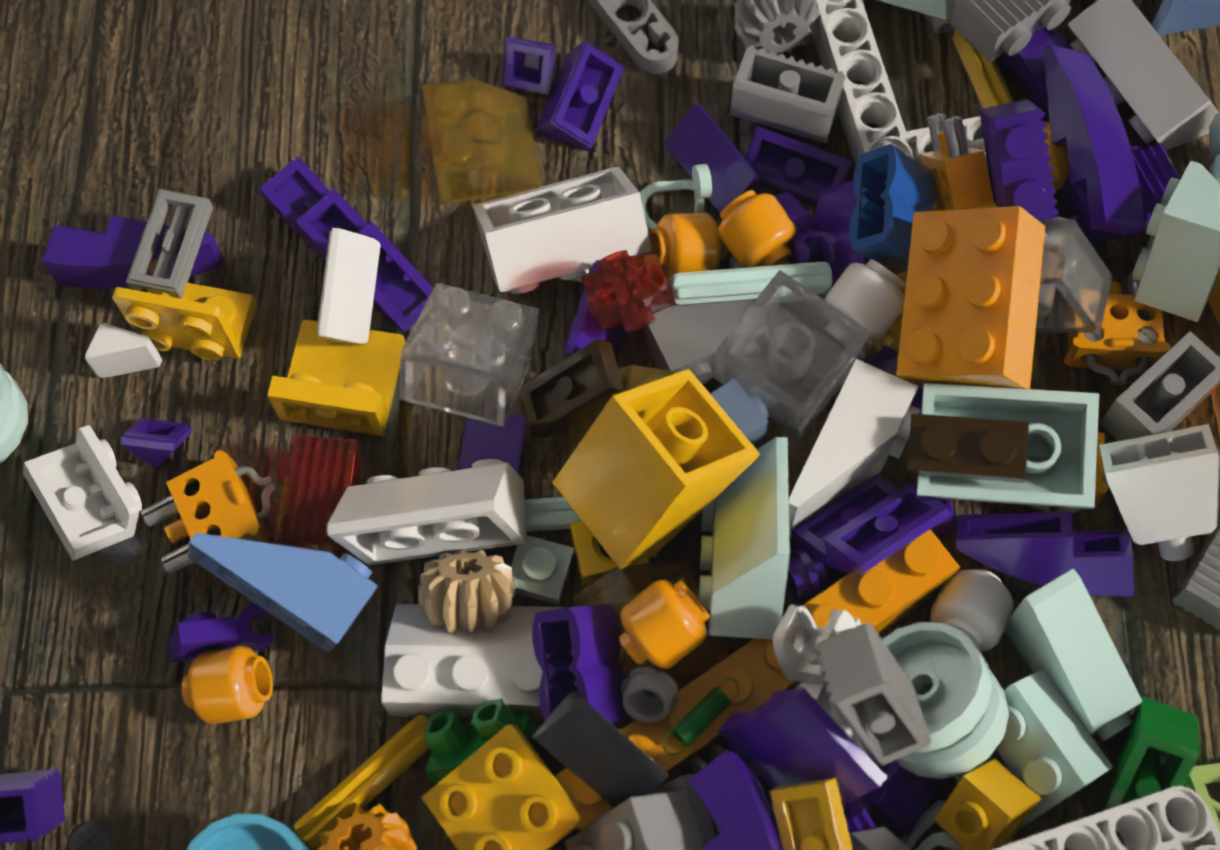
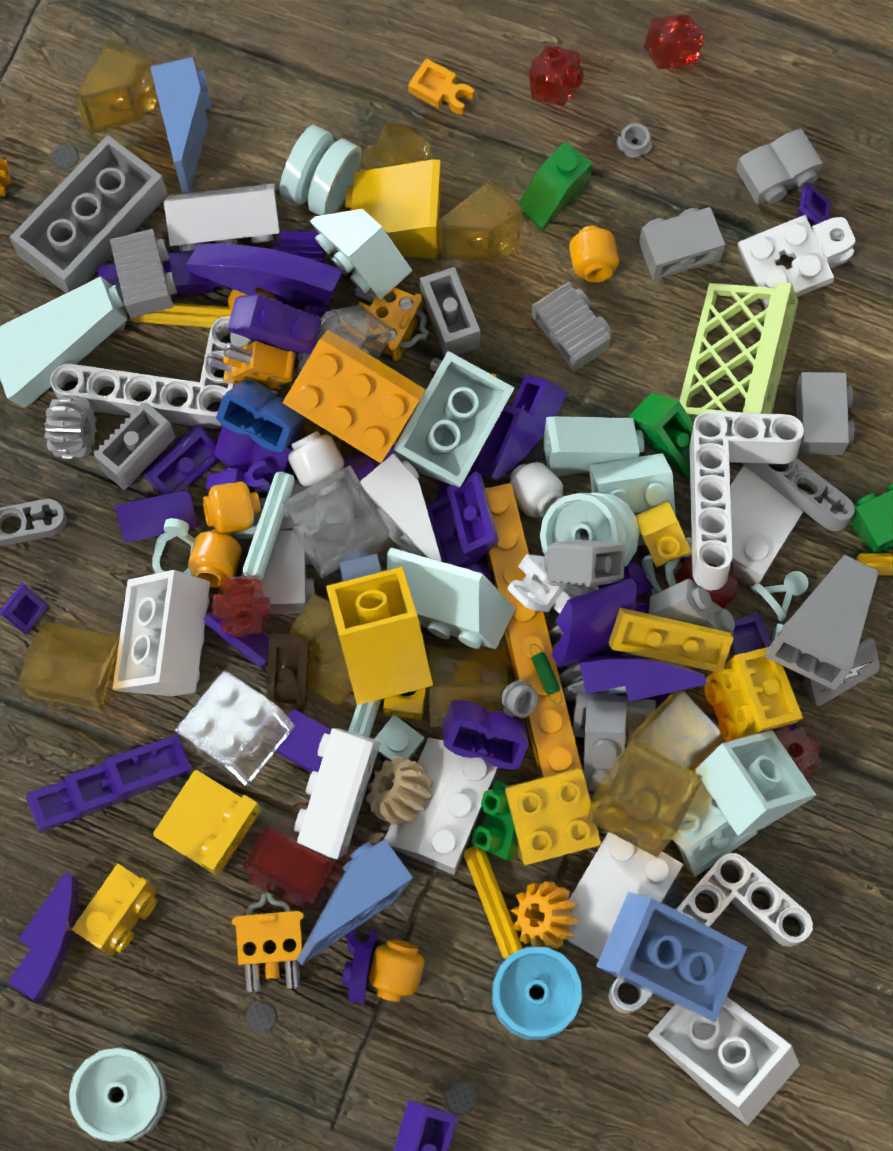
camera: 70 degrees left, 5 degrees up
(84, 494) = (220, 1025): white bracket -> none
(120, 352) = (122, 967): white slope -> none
(154, 439) = (198, 964): dark purple slope -> none
(188, 251) = (91, 922): light grey tile -> none
(348, 287) = (151, 790): white slope -> none
(580, 97) = (61, 585): dark purple slope -> none
(598, 752) = (547, 740): black slope -> none
(663, 624) = (483, 670): light orange head -> none
(968, 448) = (447, 443): dark brown plate -> none
(1166, 487) = (510, 340): white torso -> none

